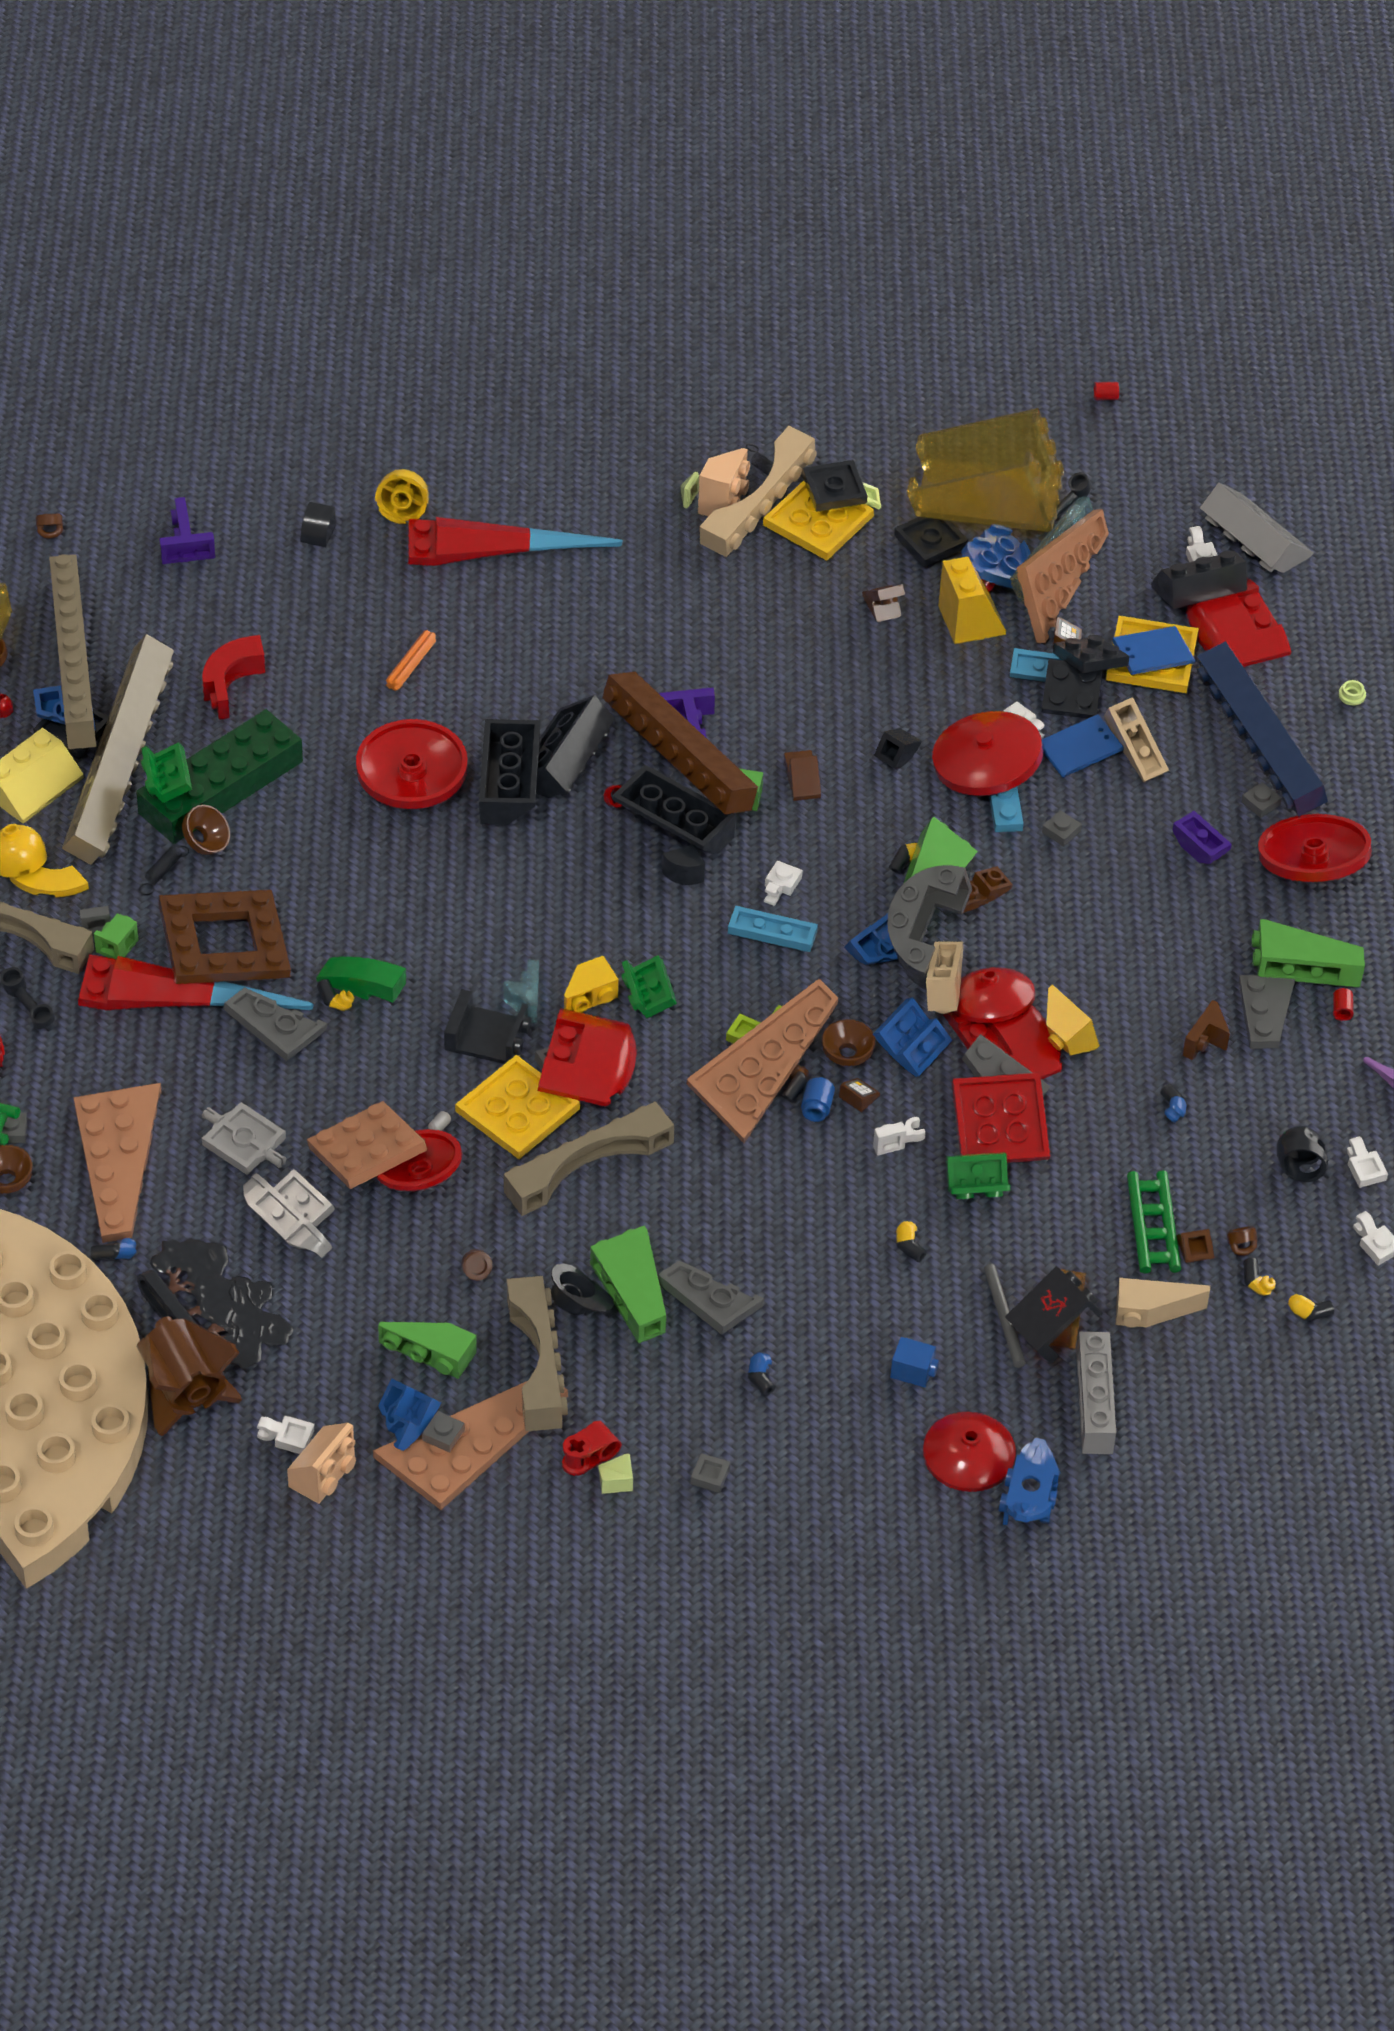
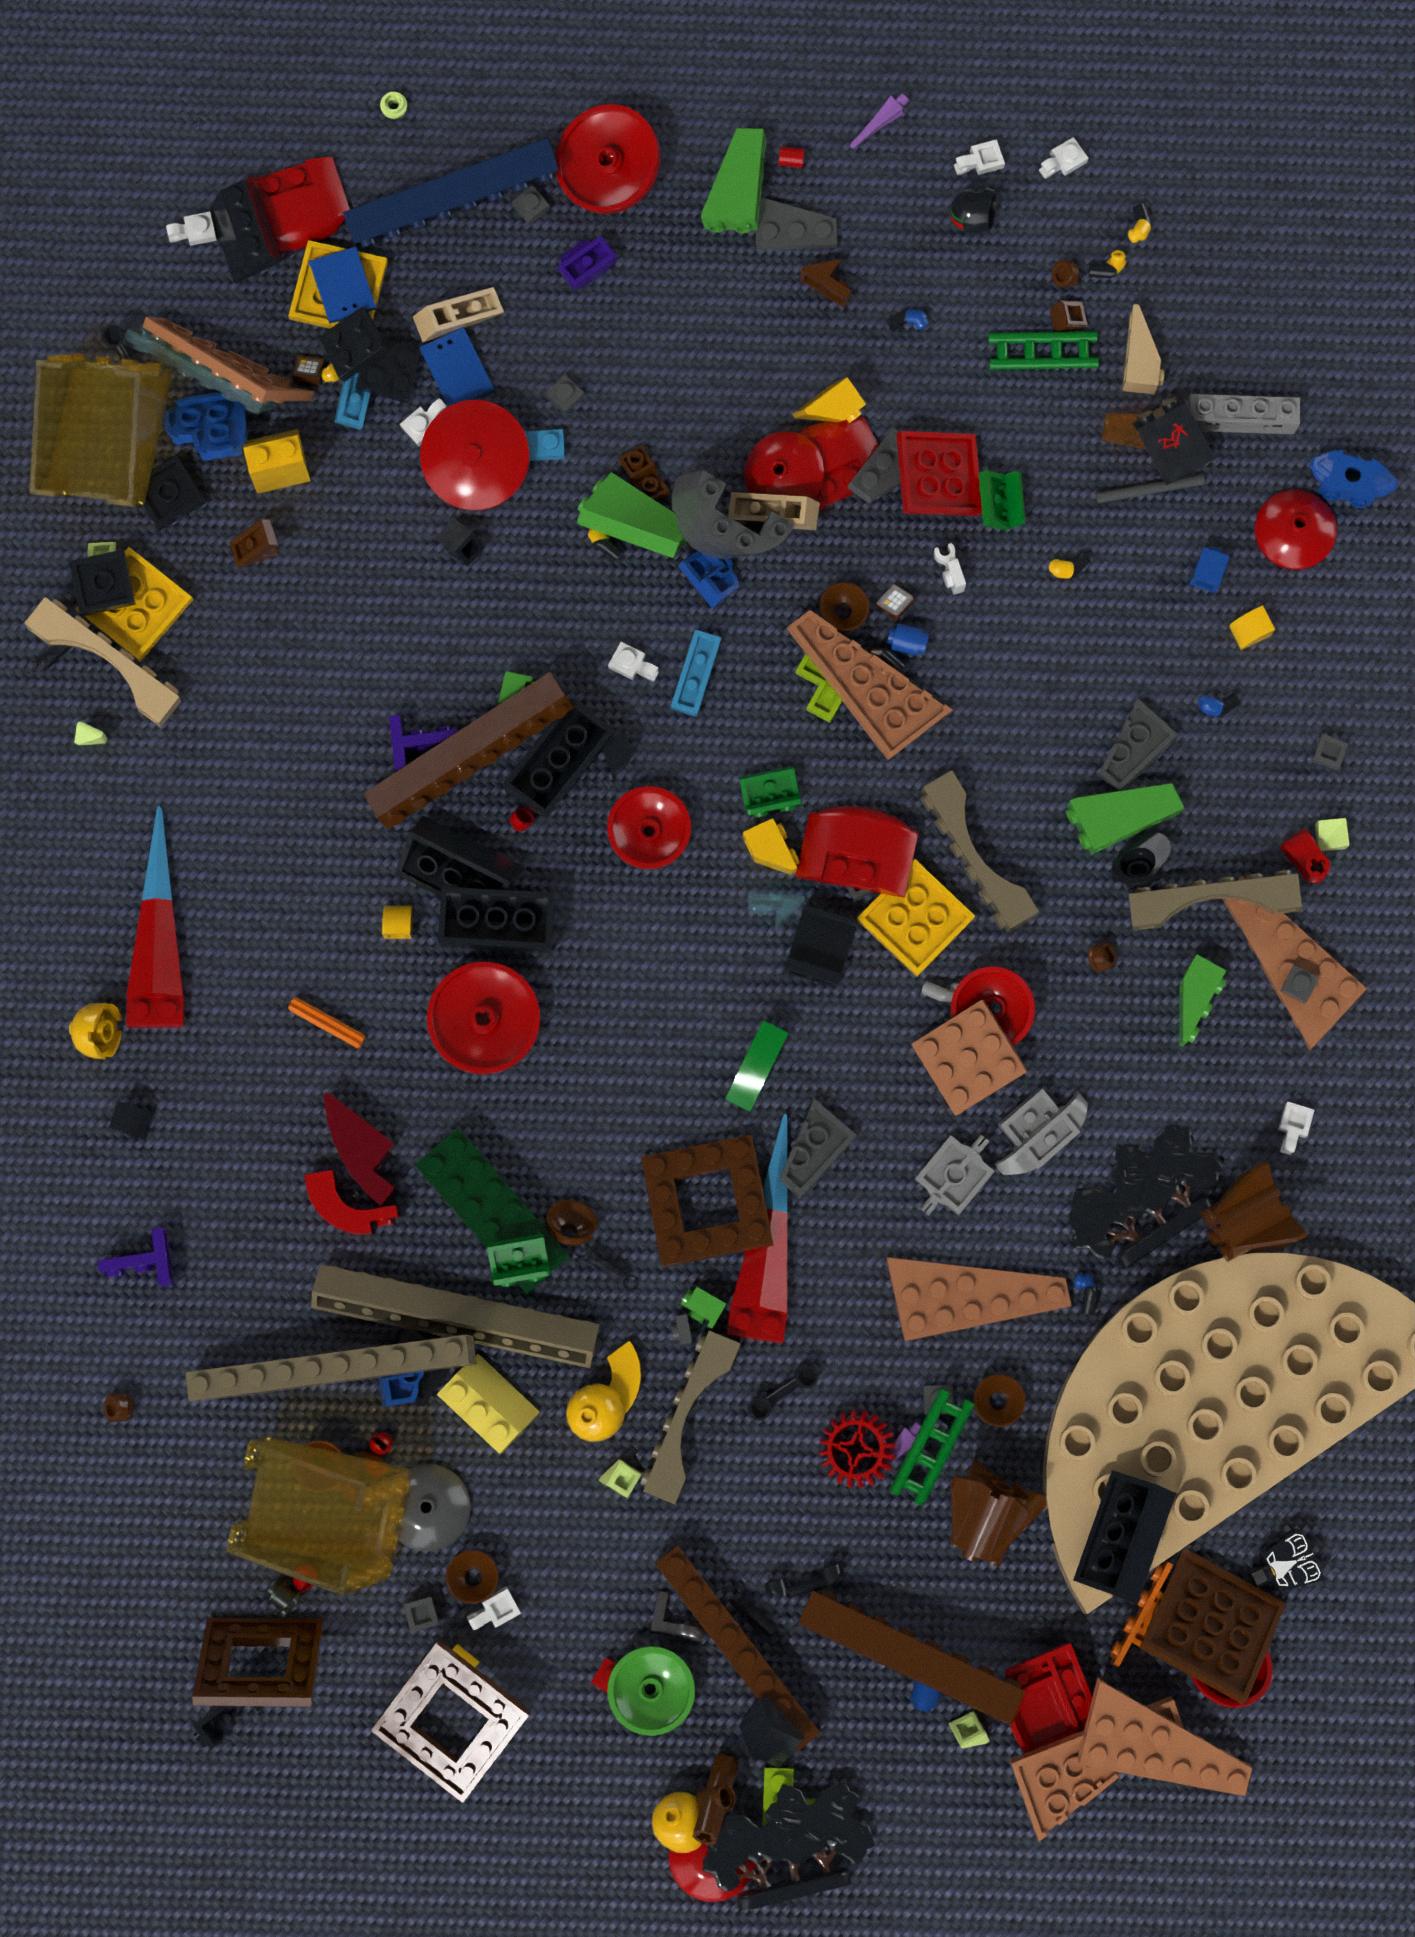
camera: 90 degrees left, 30 degrees up
(285, 681) = (360, 1148): none -> dark red slope
(323, 1462) = (1333, 1091): light nougat slope -> none
(331, 999) = (779, 1094): arm -> none
(406, 1412) = (1273, 1017): blue slope -> none
(510, 704) = (397, 922): none -> yellow brick
(606, 884) = (654, 809): none -> red dish
(723, 481) = (100, 697): light nougat slope -> none
(803, 775) = (491, 636): reddish brown slope -> none
(851, 1405) = (1252, 627): none -> yellow brick
(912, 1037) = (834, 549): blue slope -> none
(1254, 529) = (168, 172): light grey slope -> none

